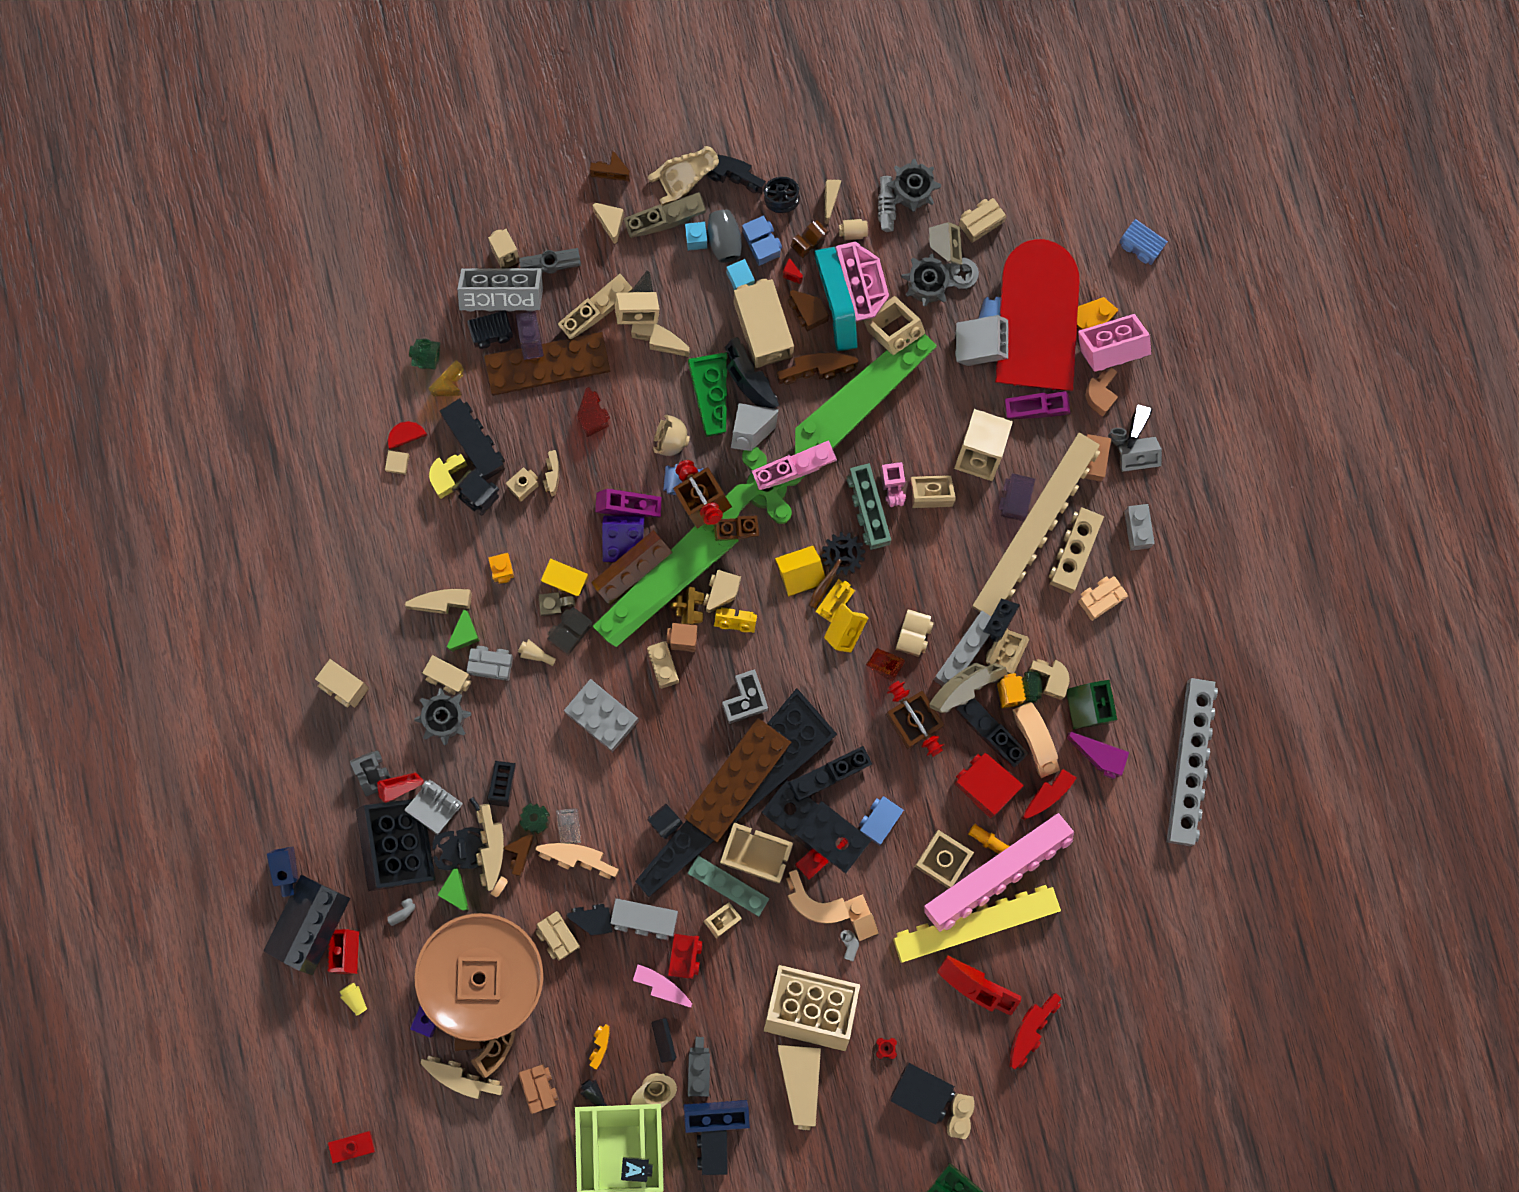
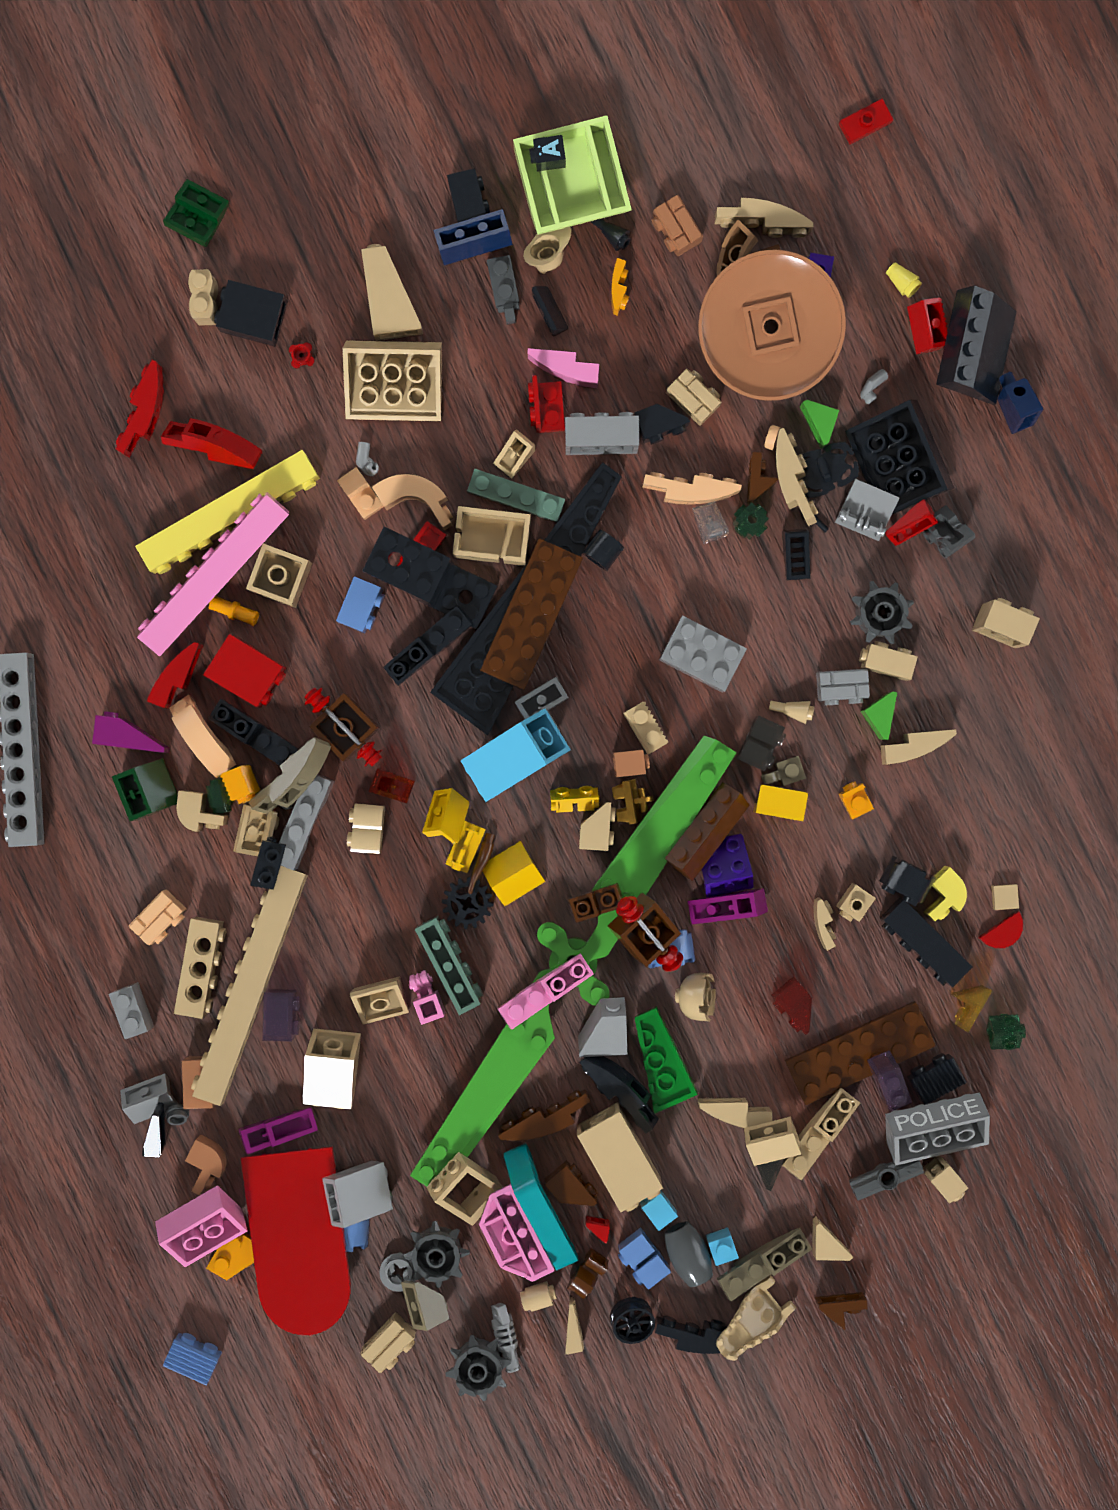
camera: 170 degrees right, 10 degrees up
(777, 662) = (515, 754): none -> medium azure brick

